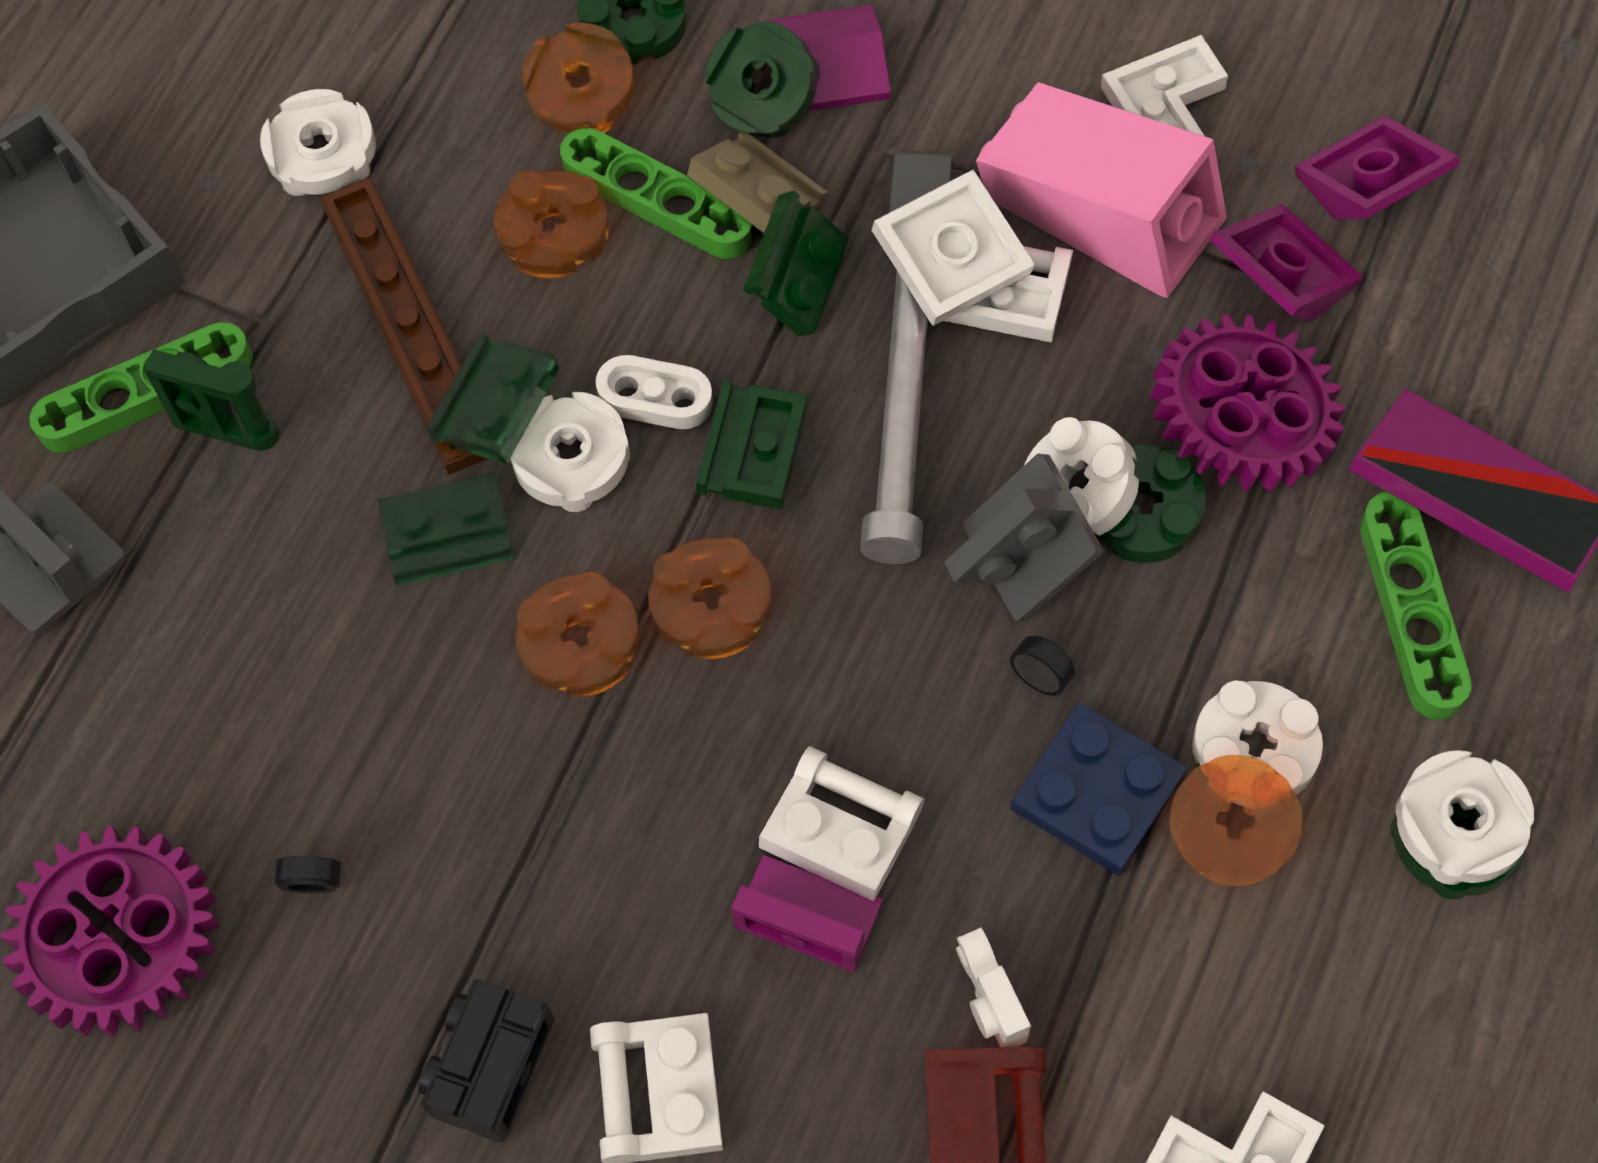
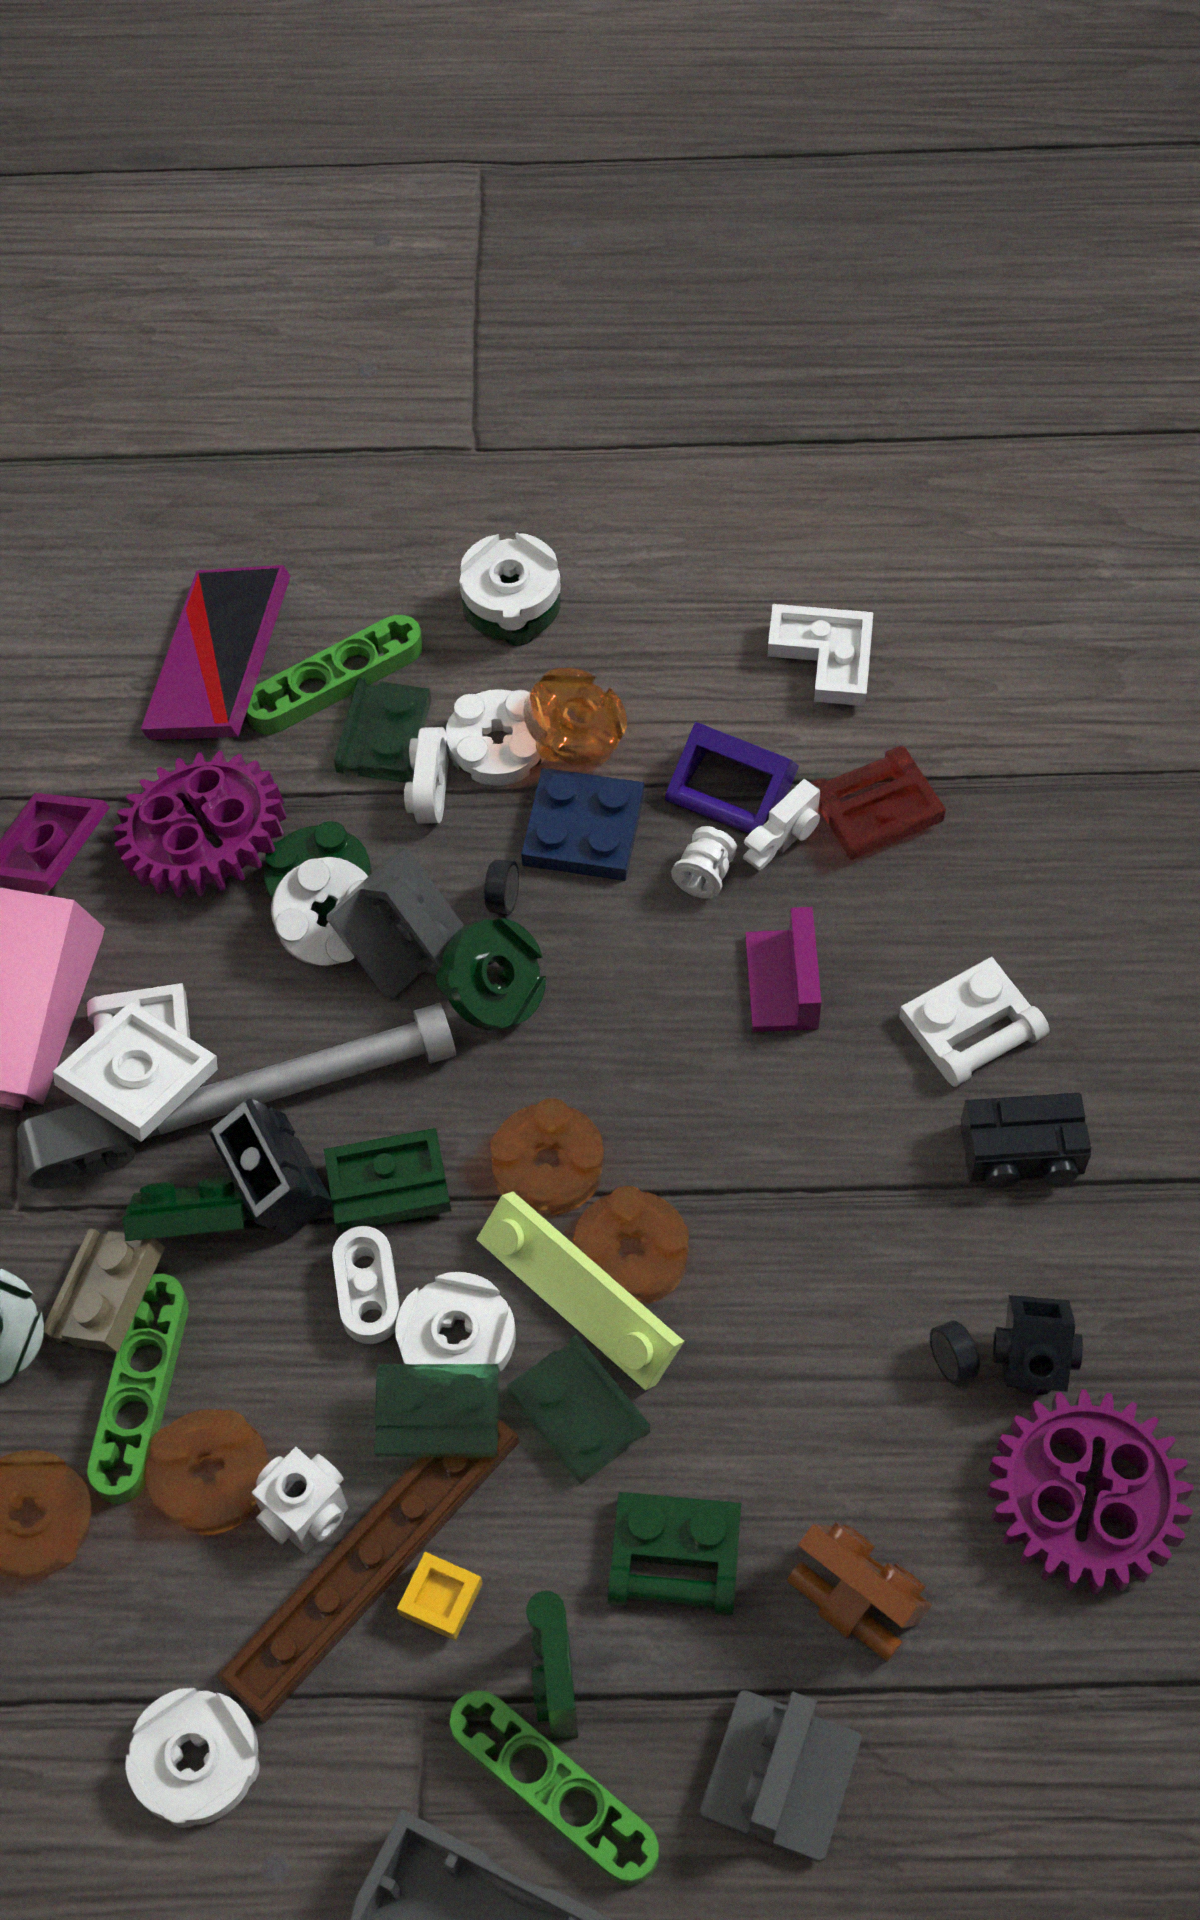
camera: 115 degrees left, 5 degrees down
(137, 675) = (861, 1587): none -> dark orange plate
(261, 946) = (1038, 1345): none -> black brick
(287, 565) = (679, 1534): none -> dark green plate
(339, 354) = (440, 1596): none -> yellow plate
(473, 593) = (580, 1290): none -> yellowish green plate
(475, 270) = (304, 1517): none -> white brick
(804, 339) = (269, 1167): none -> black brick
(832, 840) = (718, 982): white plate -> none
(959, 601) = (465, 974): none -> dark green plate
(982, 886) = (705, 862): none -> white bush
(1109, 989) = (706, 739): none -> dark purple tile
(1221, 644) = (430, 765): none -> white plate
(1314, 629) = (380, 730): none -> clear green plate

